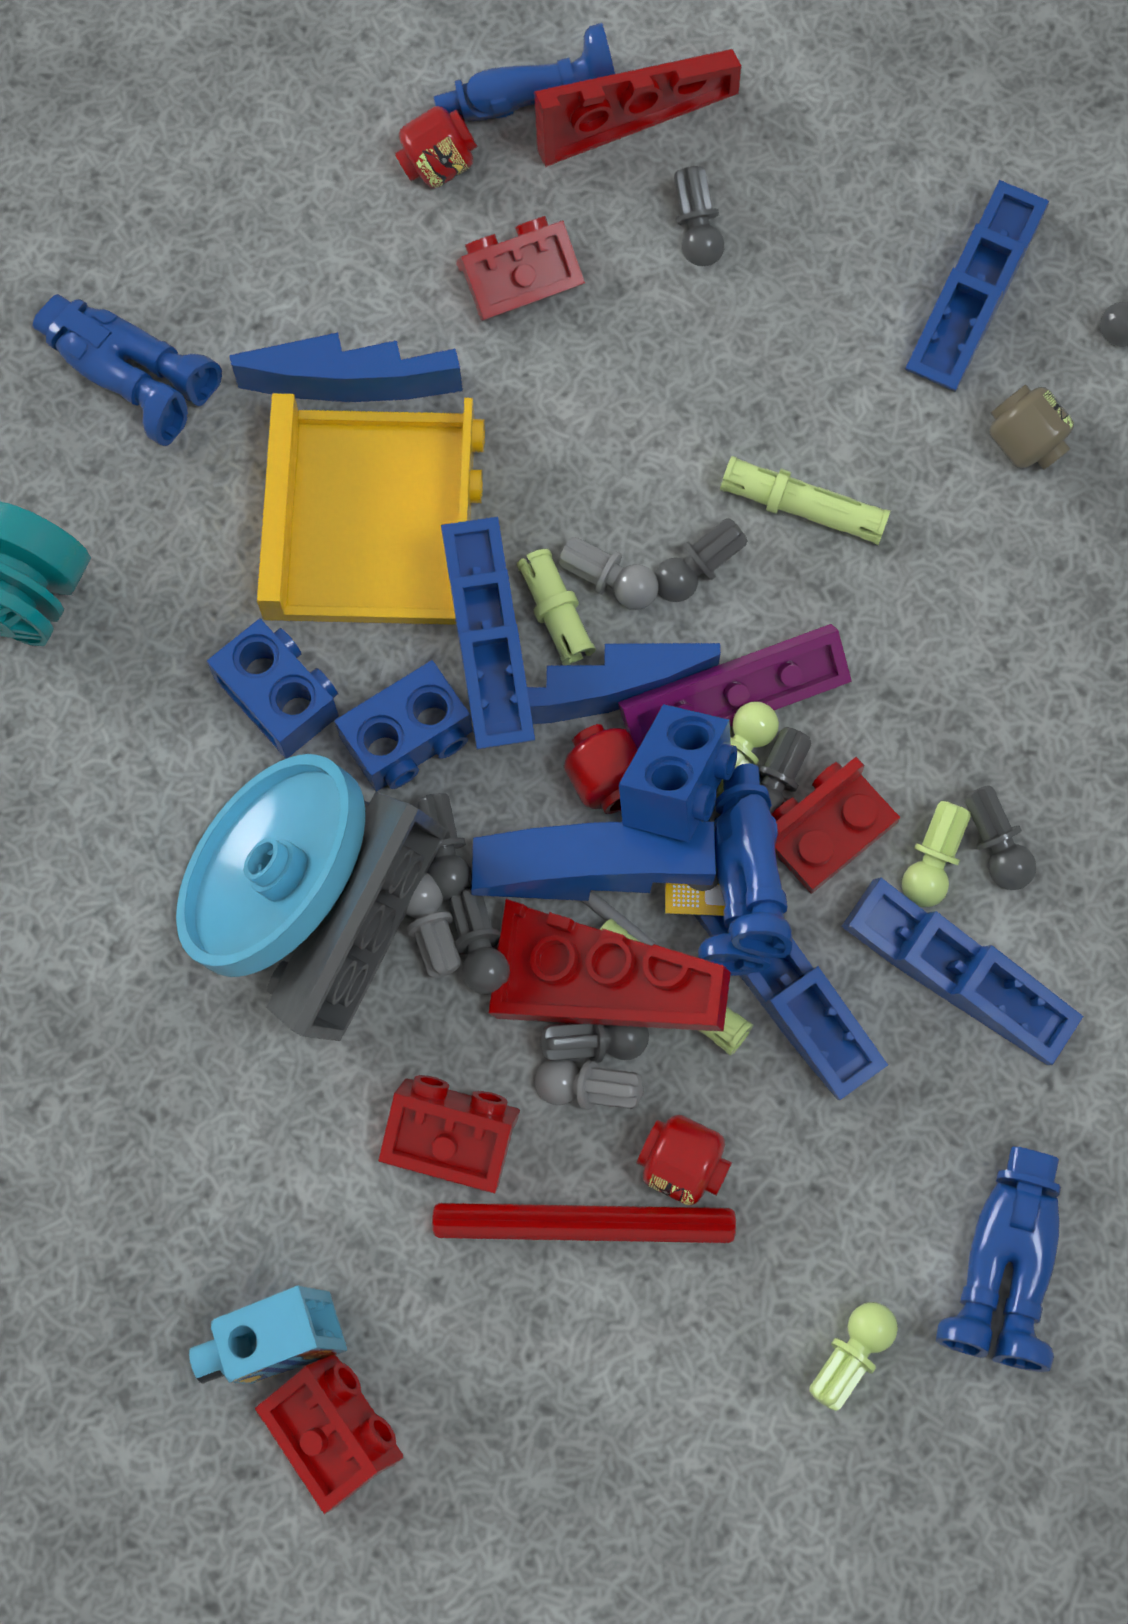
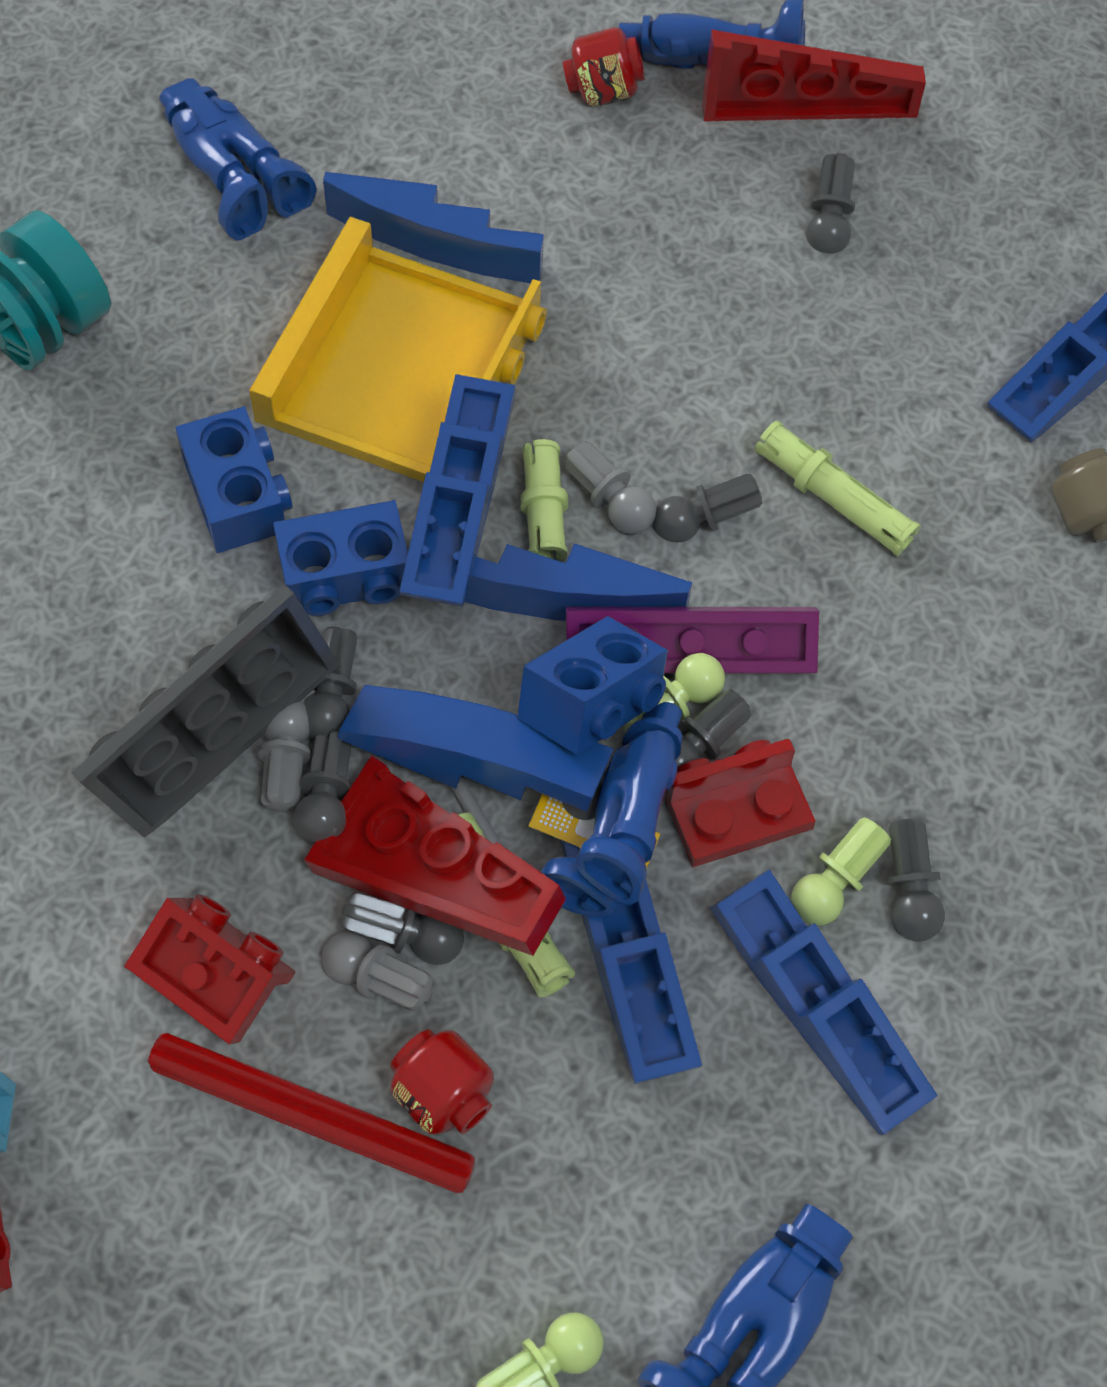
camera: 15 degrees right, 10 degrees down
(270, 865) = (142, 629): medium azure dish -> none
(521, 268) = (640, 192): bracket -> none
(599, 764) = (510, 650): red head -> none

